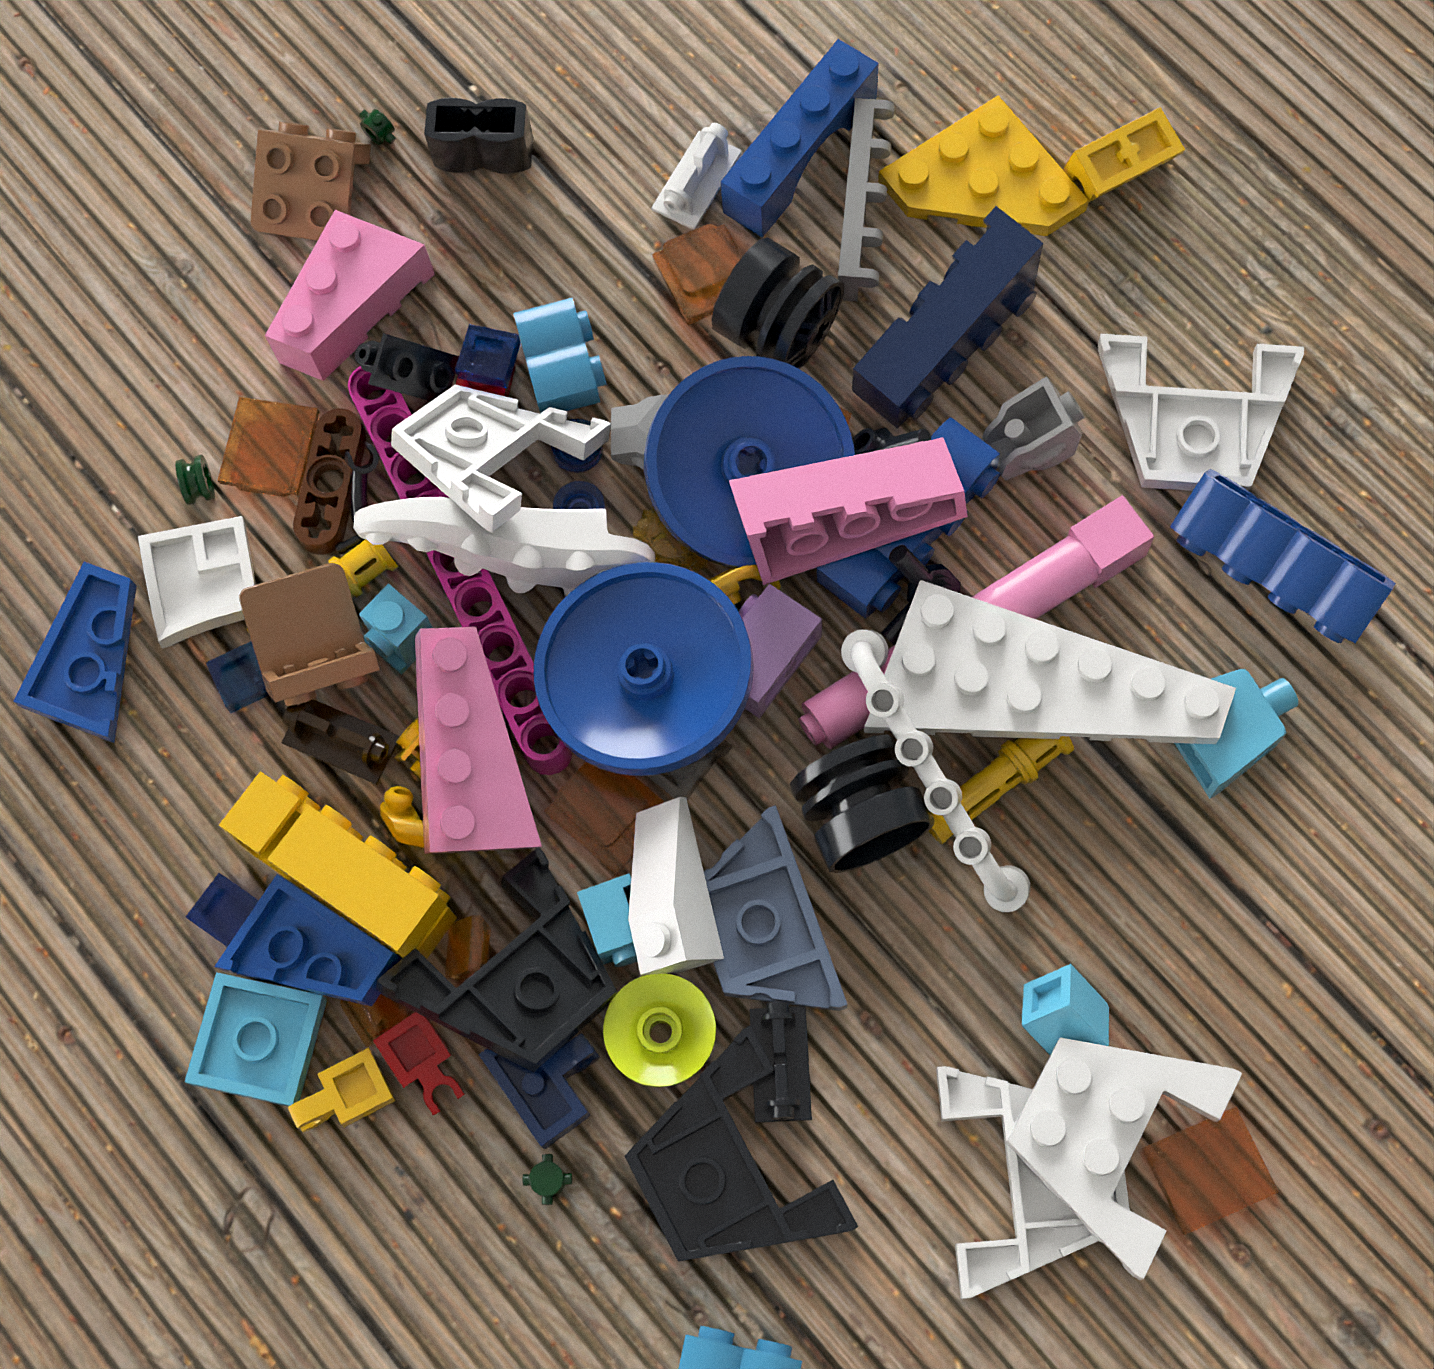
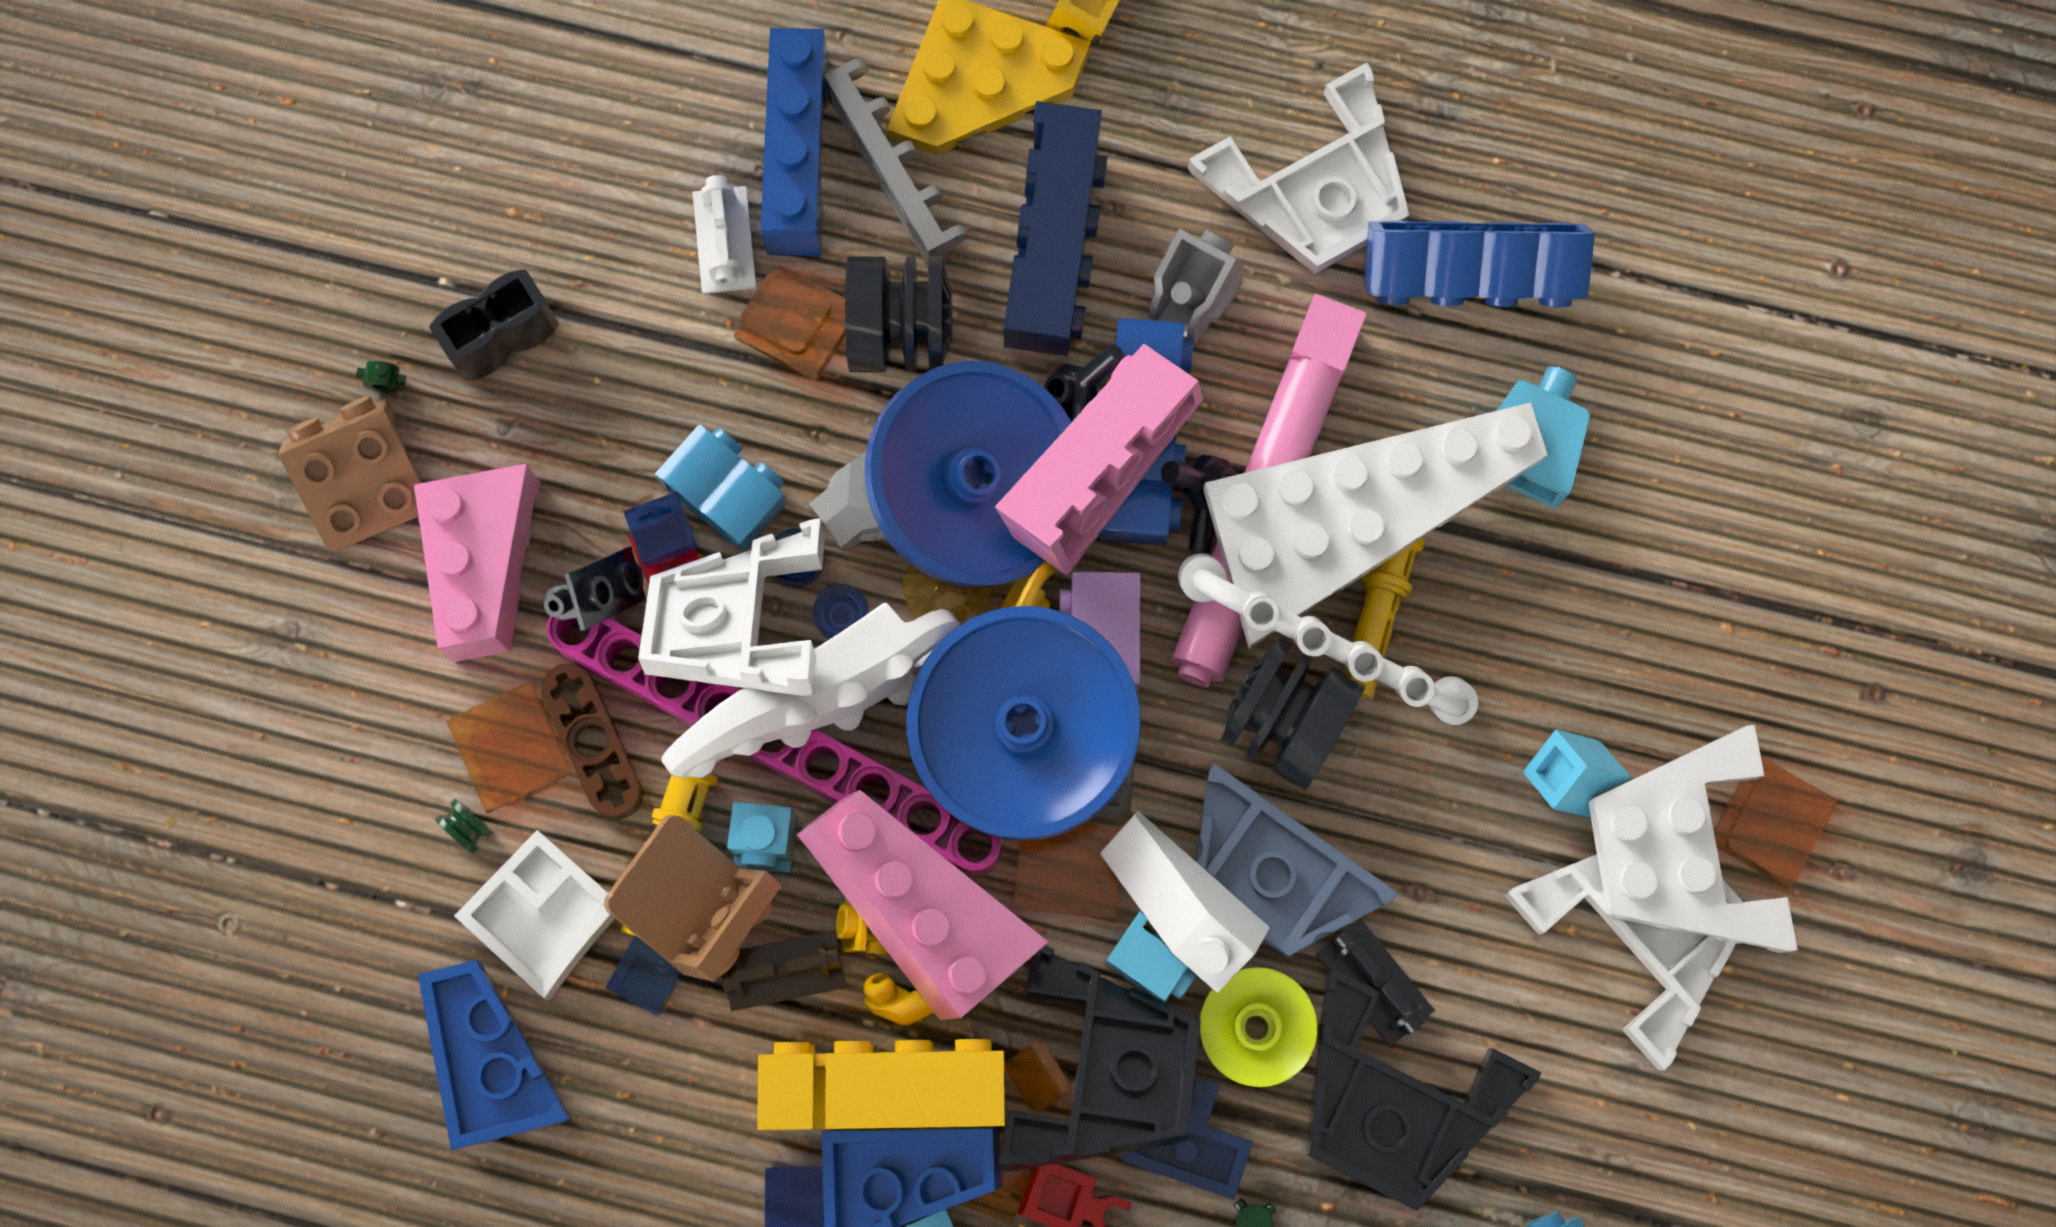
camera: 45 degrees left, 5 degrees up
(358, 493) = (634, 739): black piece -> none

